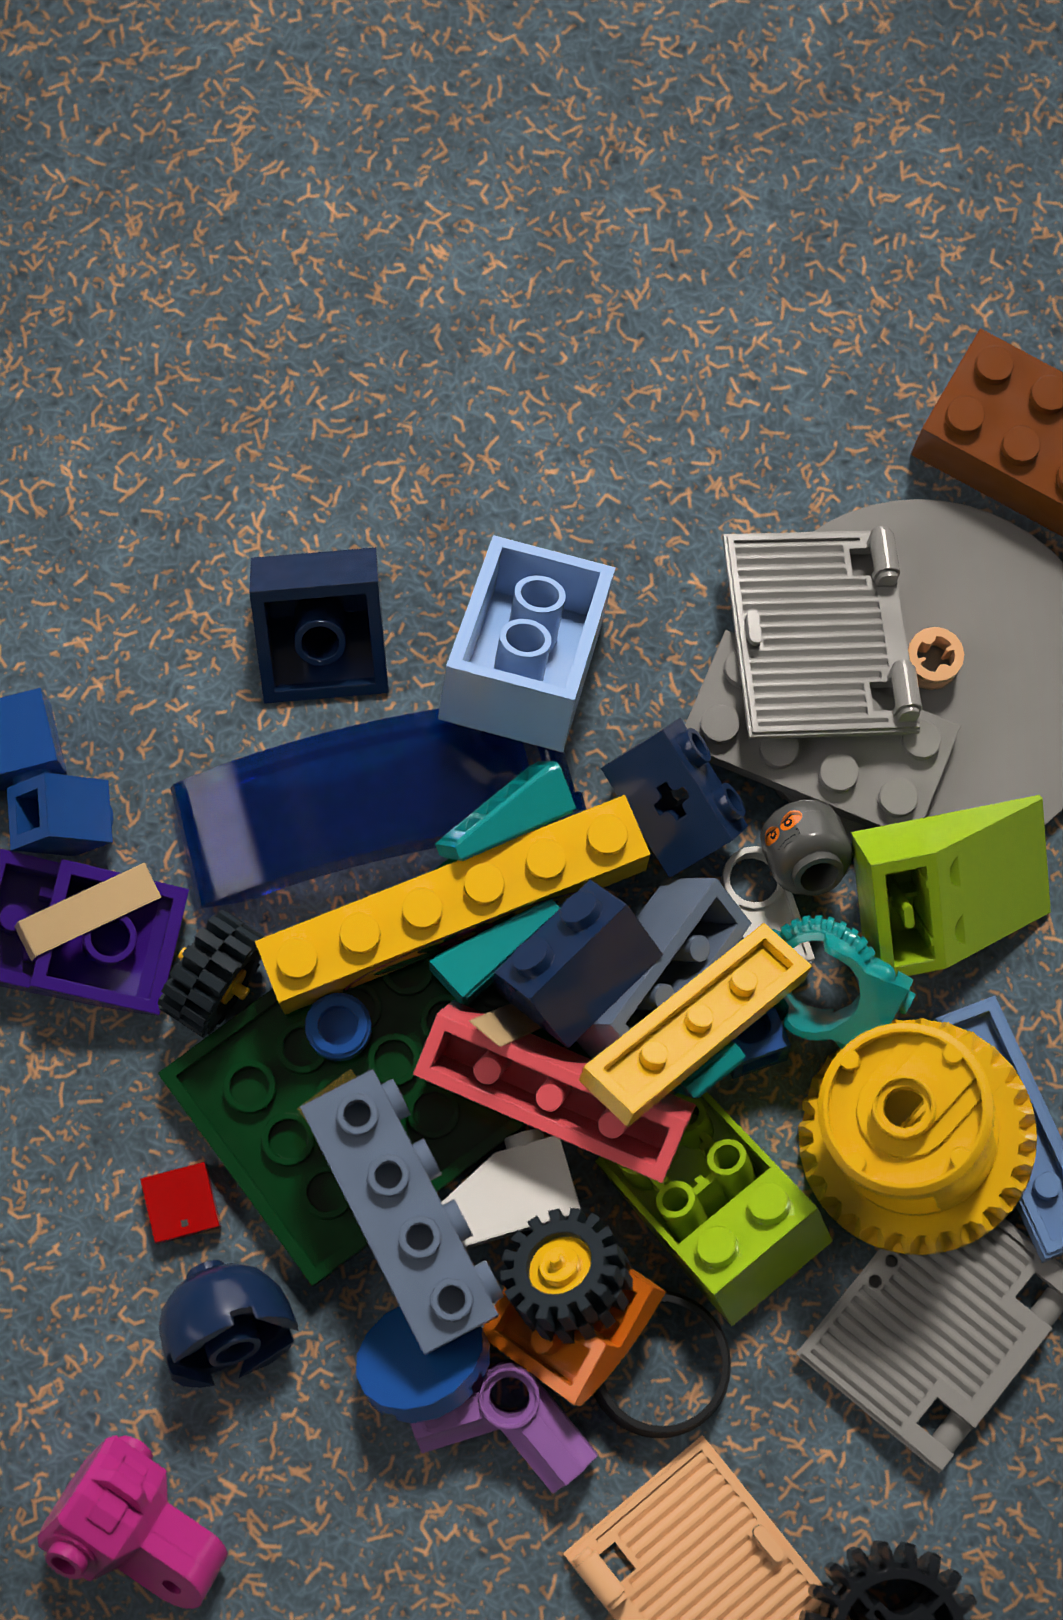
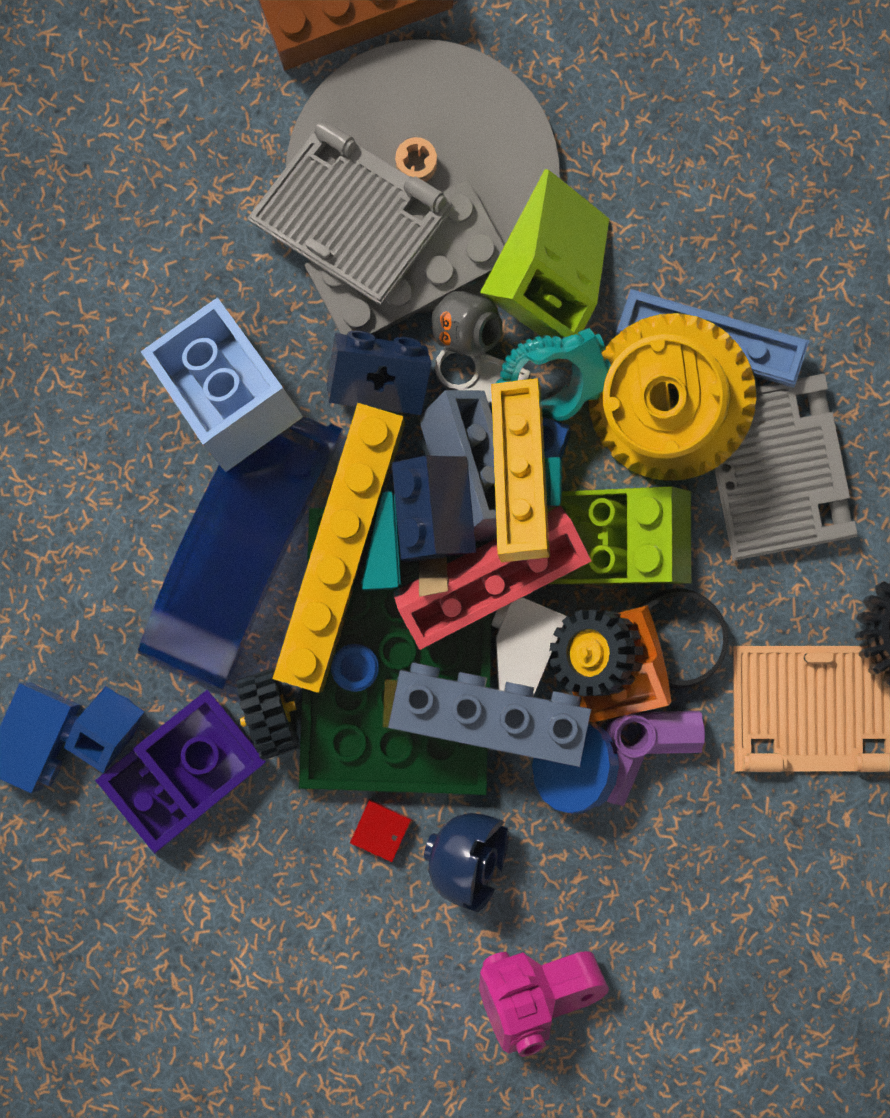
camera: 45 degrees left, 10 degrees up
(87, 910) = (174, 756): tan piece -> none
(318, 625) = (109, 493): dark blue slope -> none
(521, 806) = (315, 469): teal slope -> none

